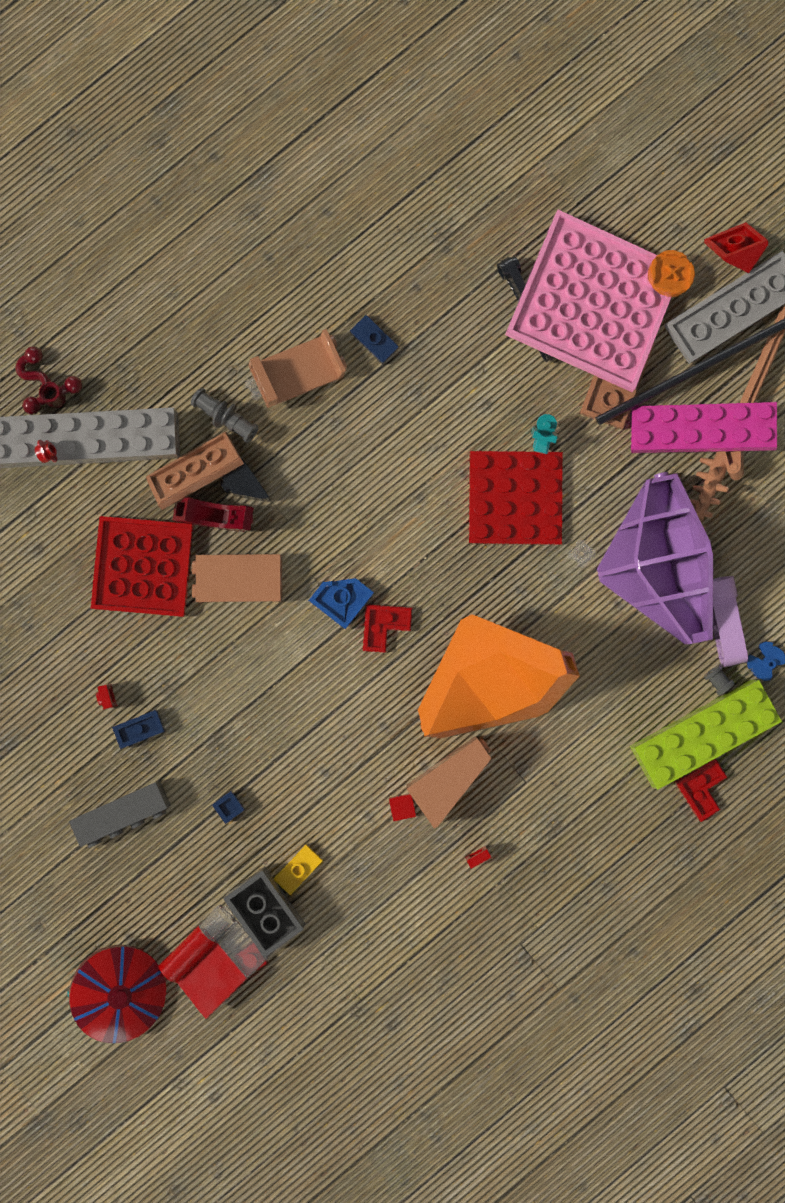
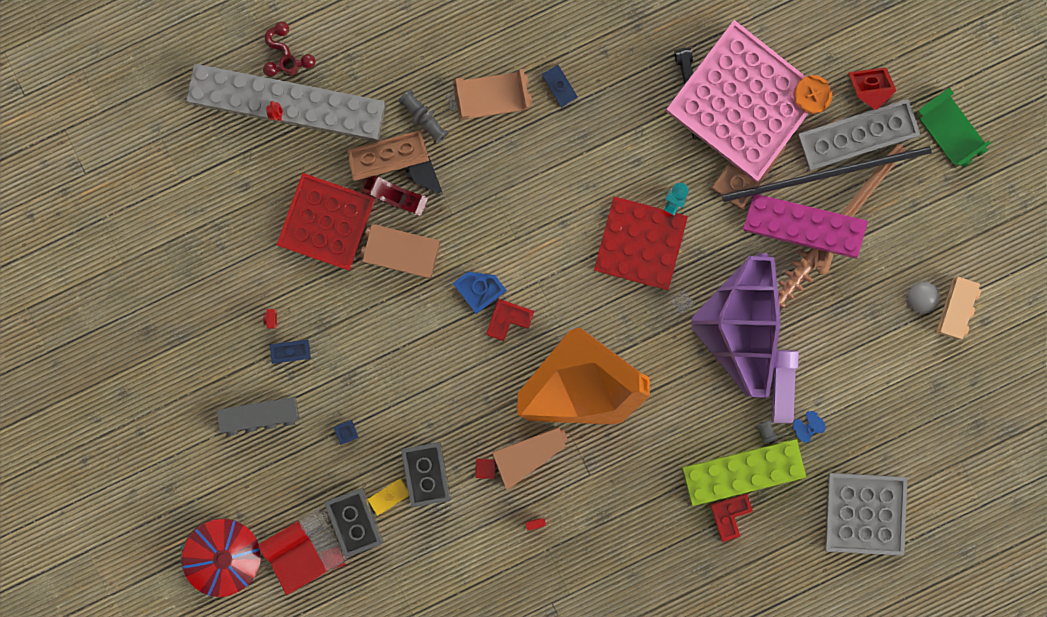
camera: 15 degrees right, 0 degrees up
(334, 833) = (426, 474): none -> dark grey brick

